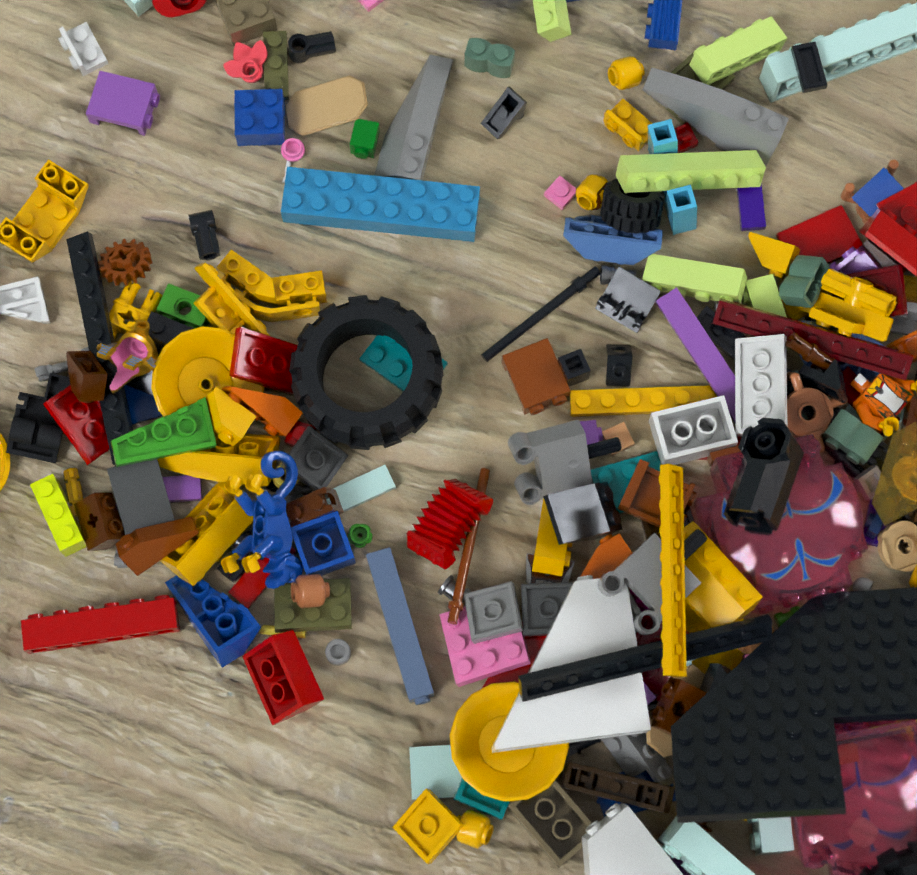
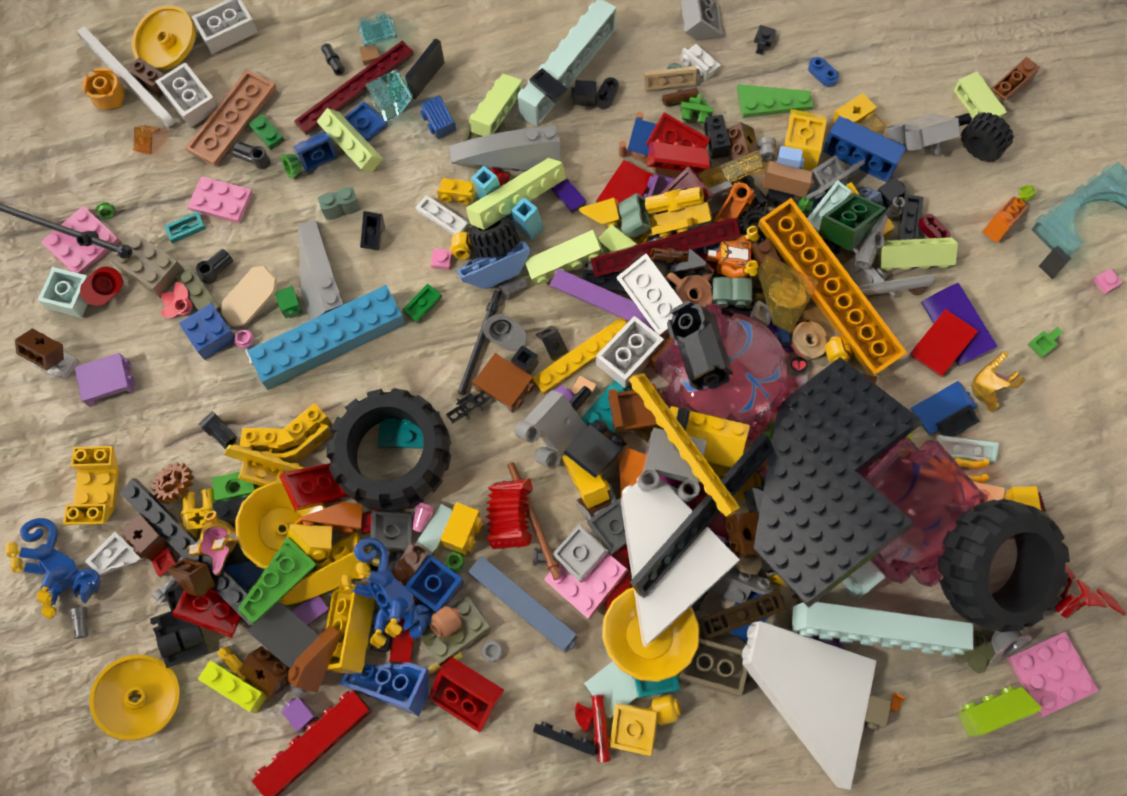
camera: 30 degrees left, 5 degrees down
(62, 302) = (144, 538): none -> brick
(66, 340) = (163, 561): none -> red plate
(75, 28) = (39, 349): none -> reddish brown brick
(106, 585) = (299, 714): none -> medium lavender brick
(353, 787) = (565, 737): none -> black plate
(357, 465) = (422, 516): none -> bright pink cone
(380, 830) = (602, 754): none -> red pin
(387, 780) = (583, 716): none -> red tile
(388, 506) = (462, 529): none -> yellow brick
(476, 374) = (462, 406): none -> black piece
(506, 230) = (422, 303): none -> green plate
(574, 321) = (505, 332): none -> light grey piece
(593, 143) = (441, 216): none -> white tile
(625, 73) = (434, 161): yellow head -> none
(628, 299) = (530, 297): hinge -> none
(850, 96) = (584, 93): none -> black brick
(871, 566) = (798, 366): none -> tile
(875, 108) = (610, 94): none -> black beam

